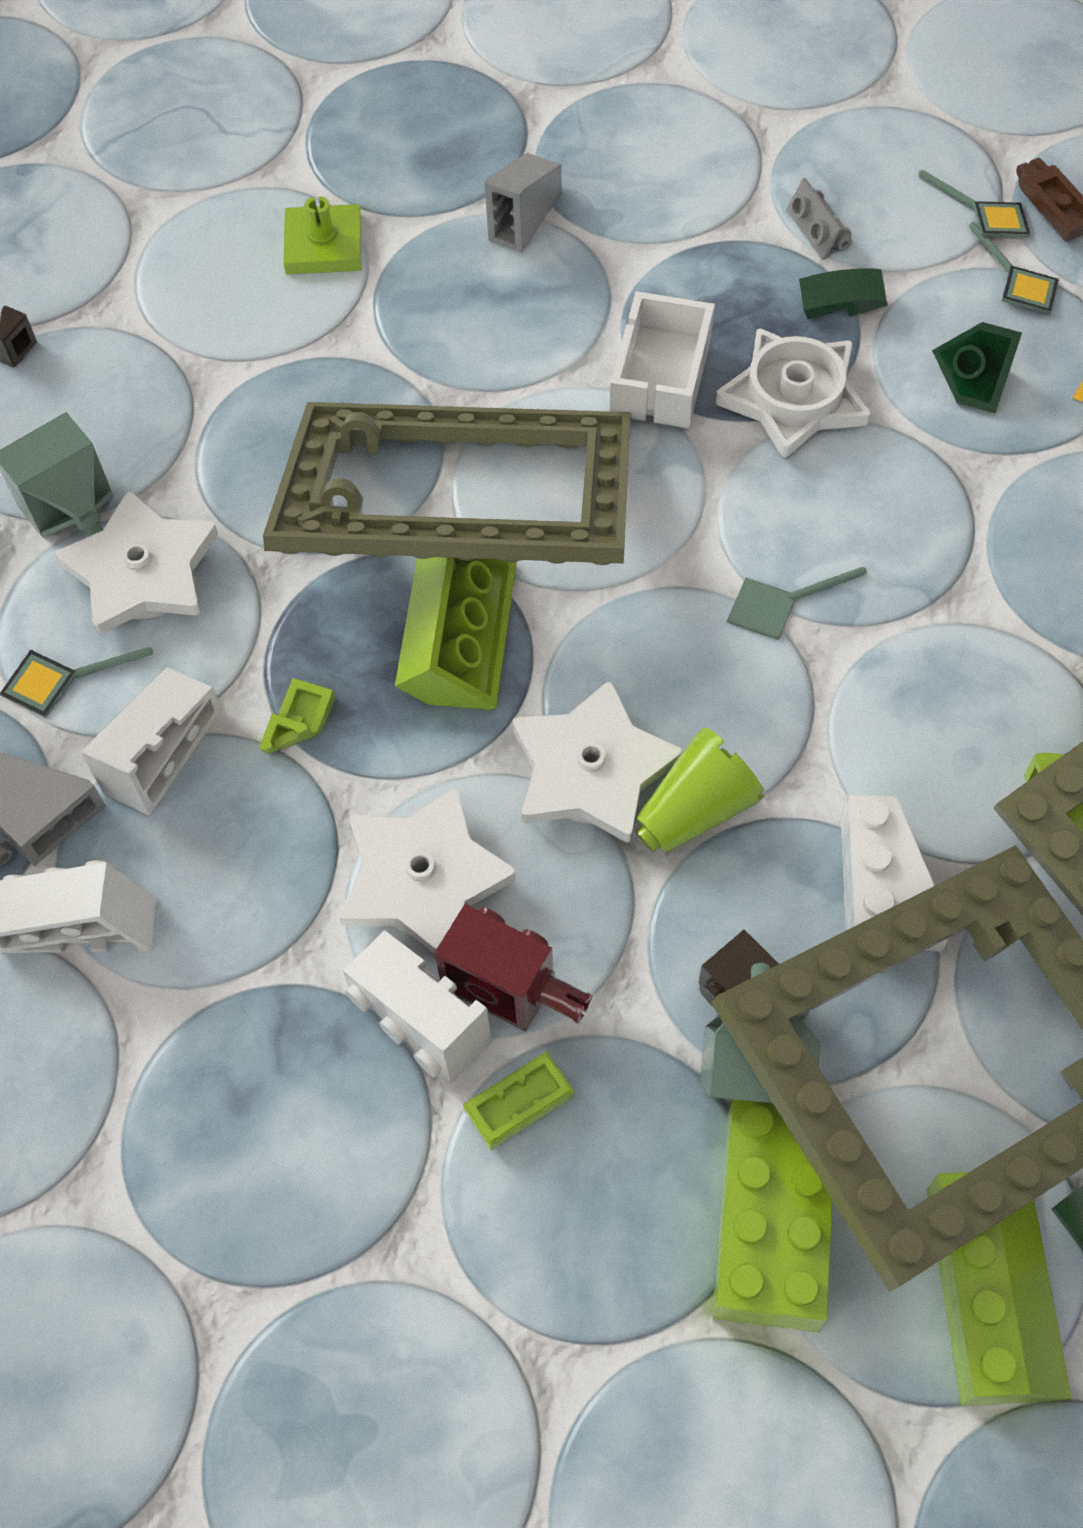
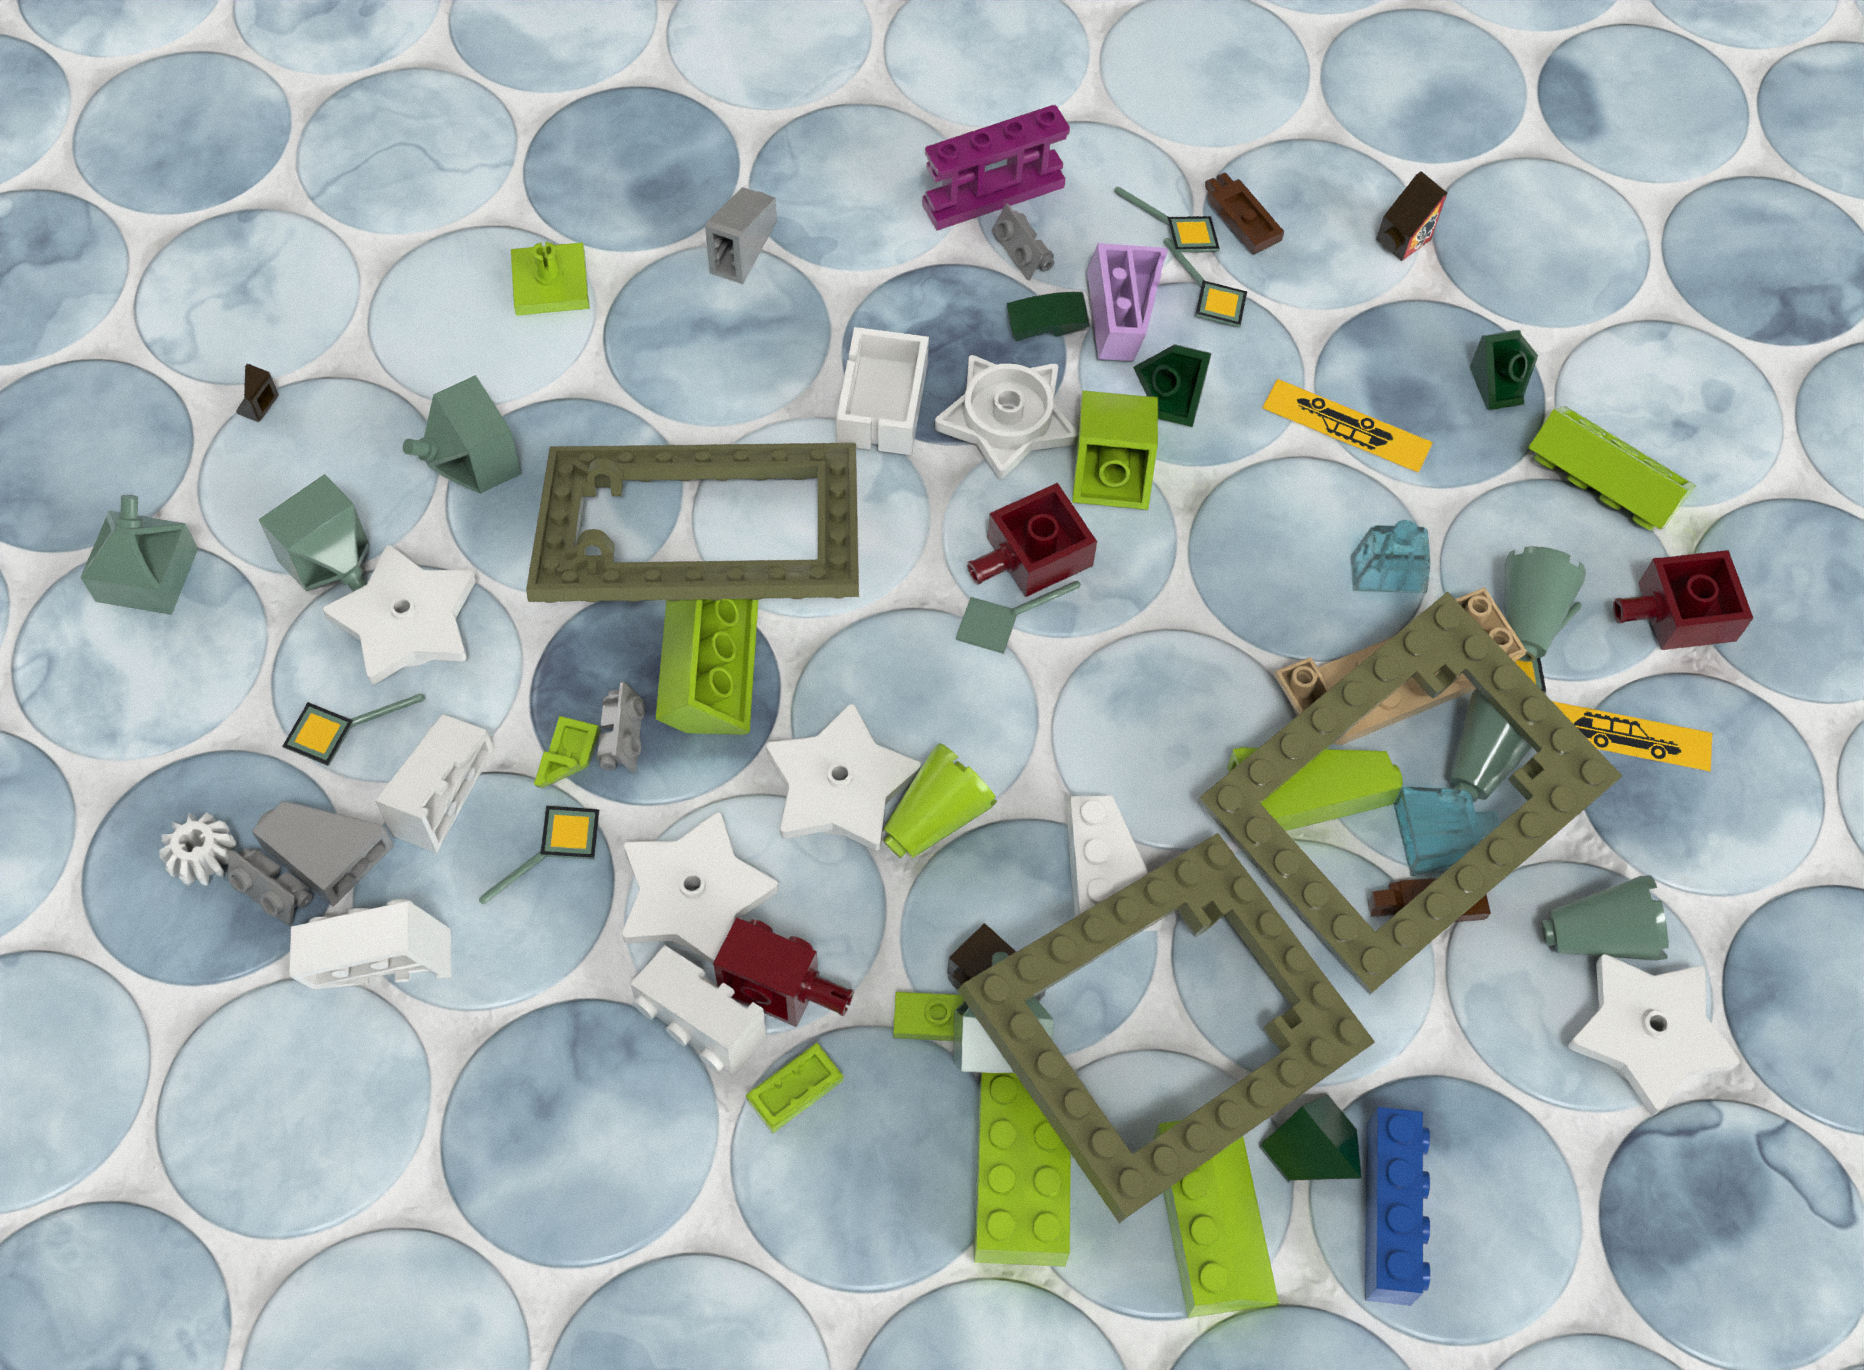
camera: 10 degrees left, 0 degrees up
(220, 388) = (467, 438): none -> sand green piece
(289, 804) = (566, 834): none -> piece
(362, 680) = (623, 712): none -> light grey hinge
(671, 1029) = (925, 1016): none -> lime plate
(789, 113) = (961, 164): none -> magenta fence
(821, 521) = (1036, 542): none -> dark red brick
(912, 431) = (1115, 450): none -> lime slope
(925, 274) = (1122, 296): none -> lavender wedge

